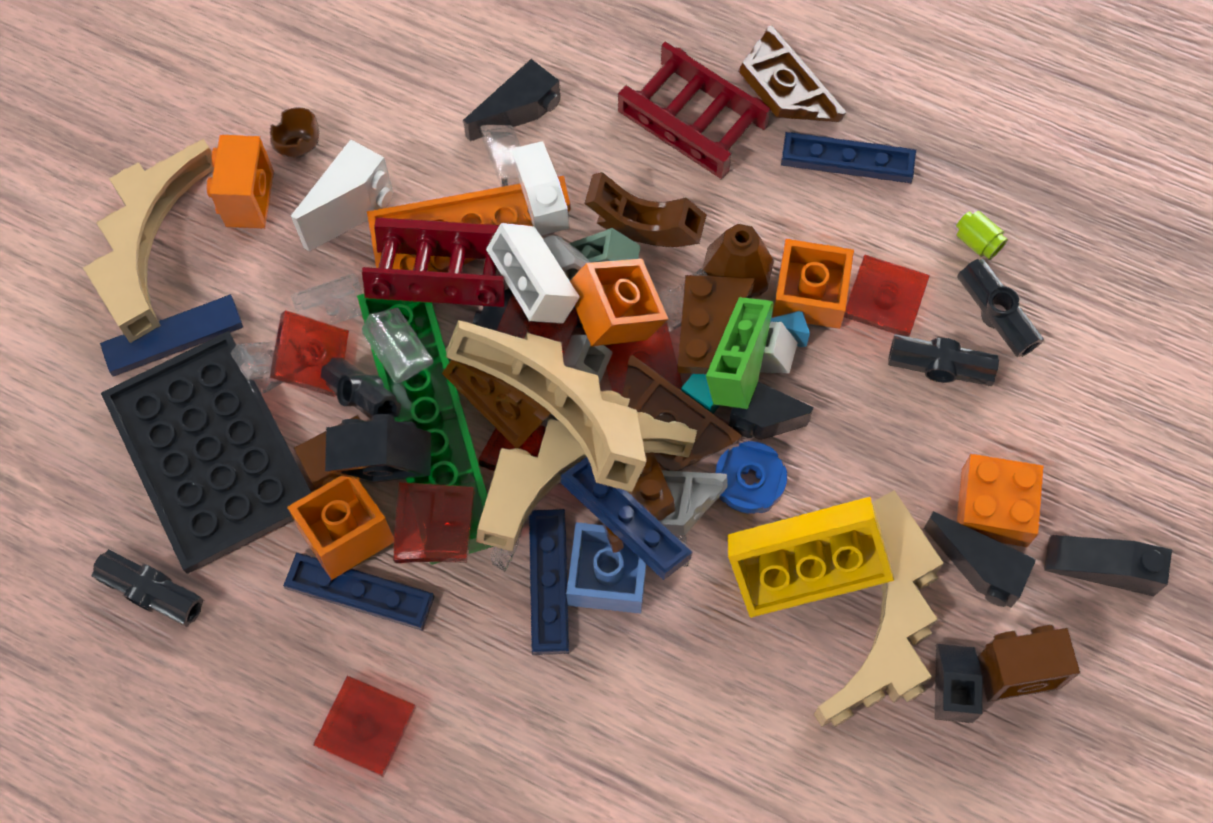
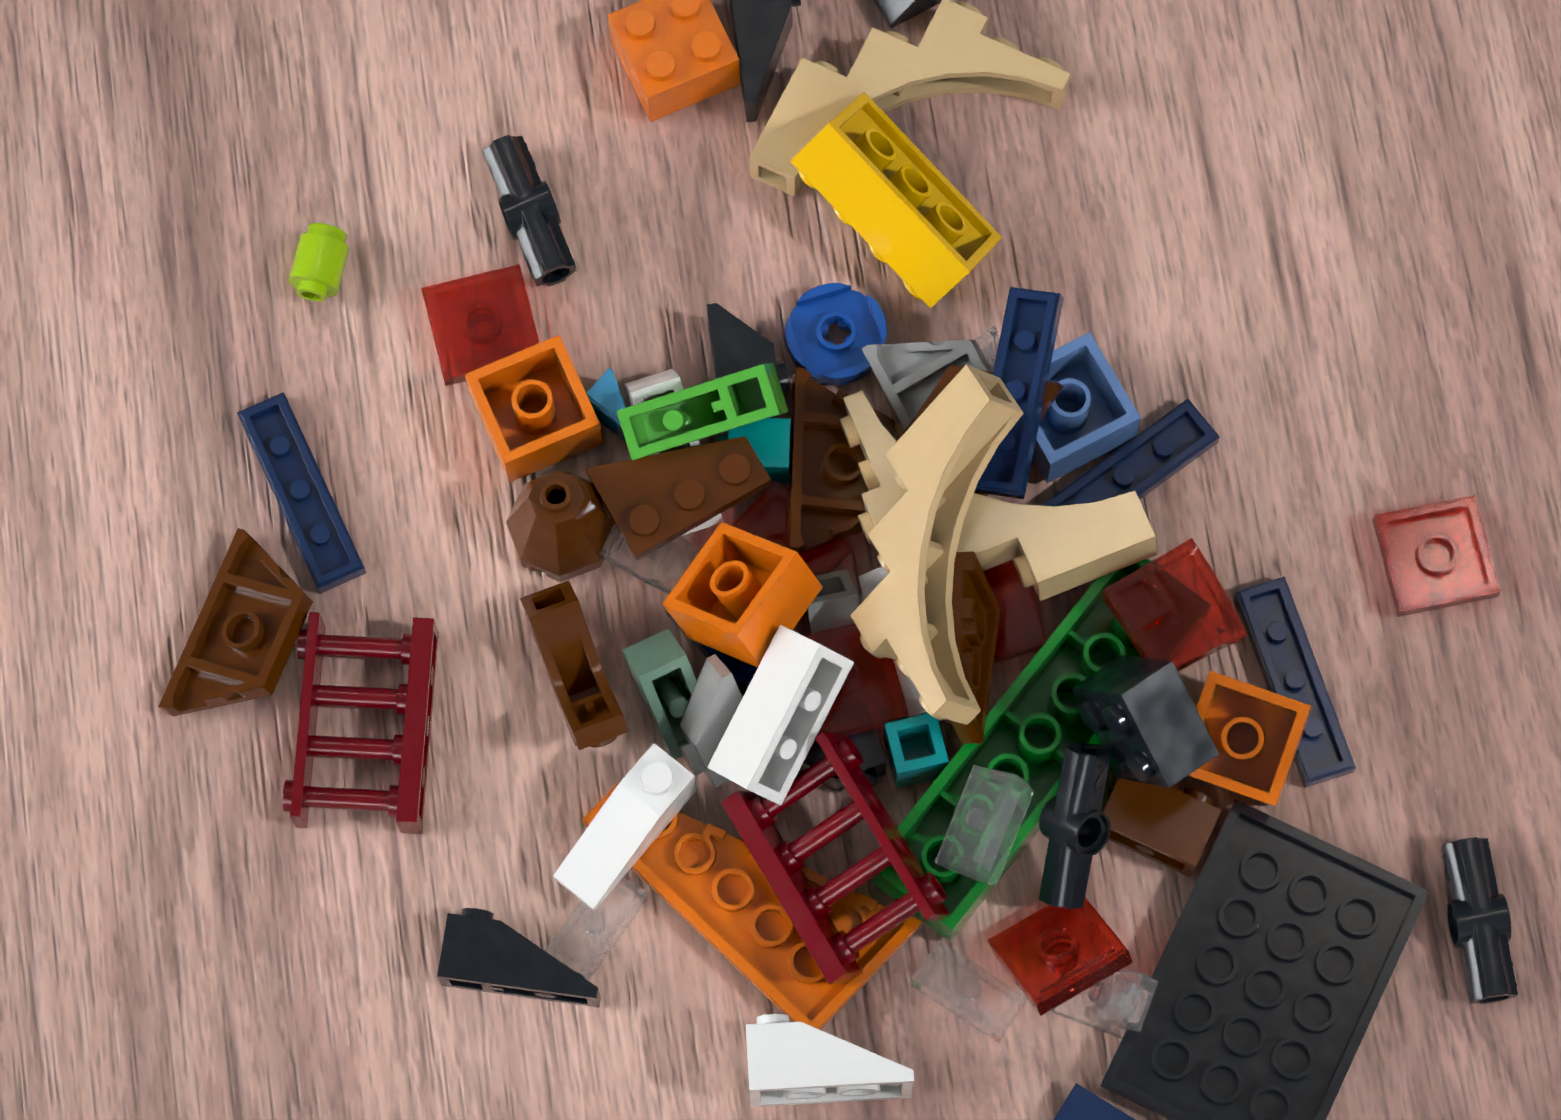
camera: 125 degrees left, 5 degrees up
(1010, 324) = (423, 159): black piece -> none

